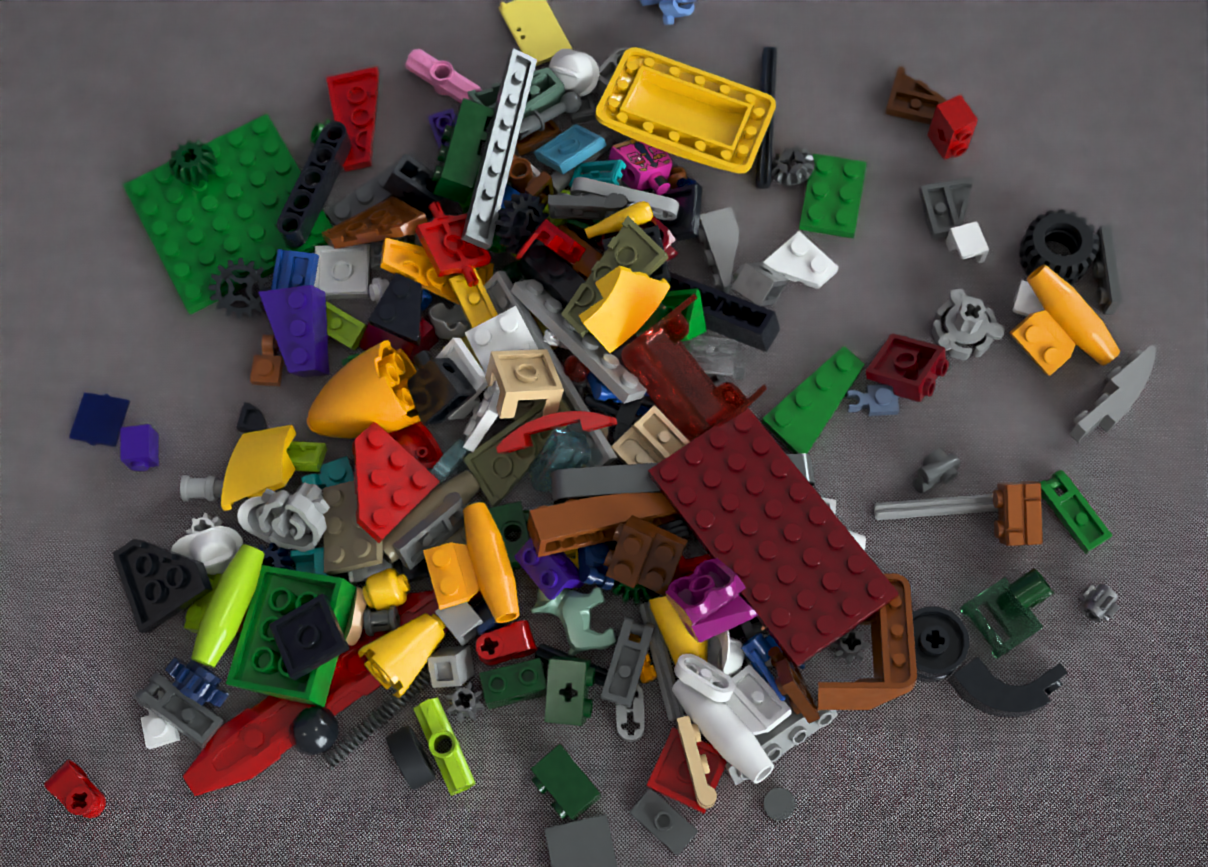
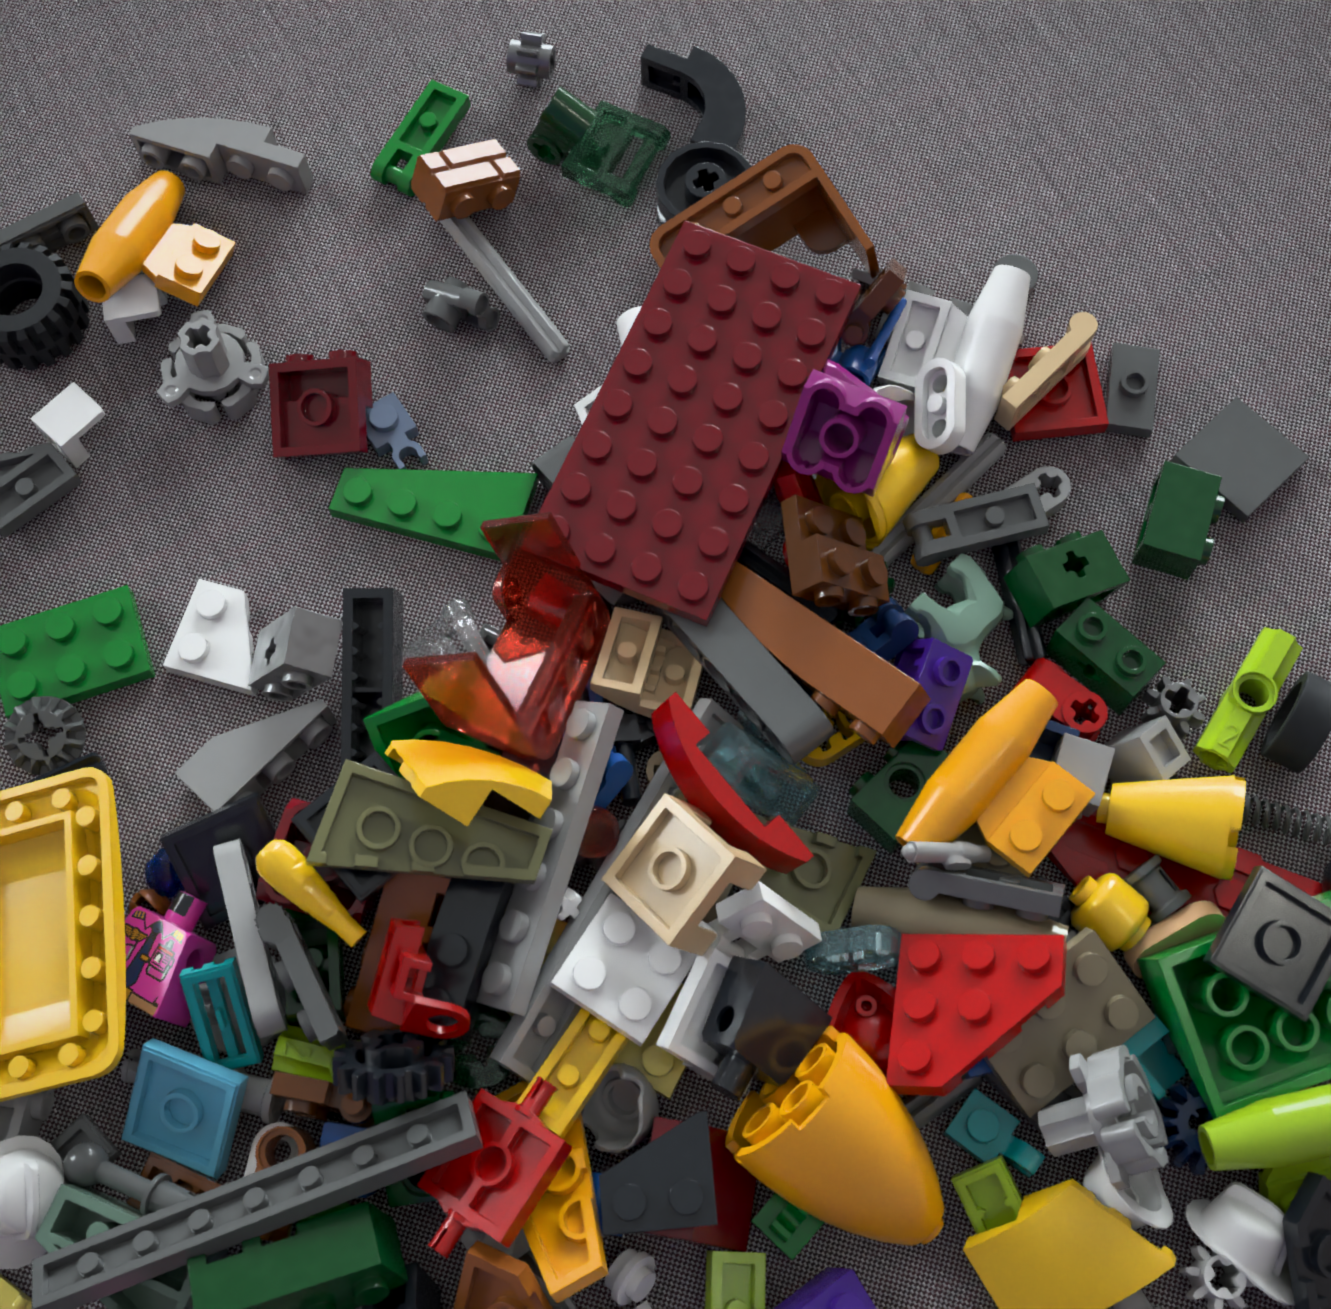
camera: 125 degrees left, 0 degrees up
(458, 517) = (952, 855): none -> light grey piece

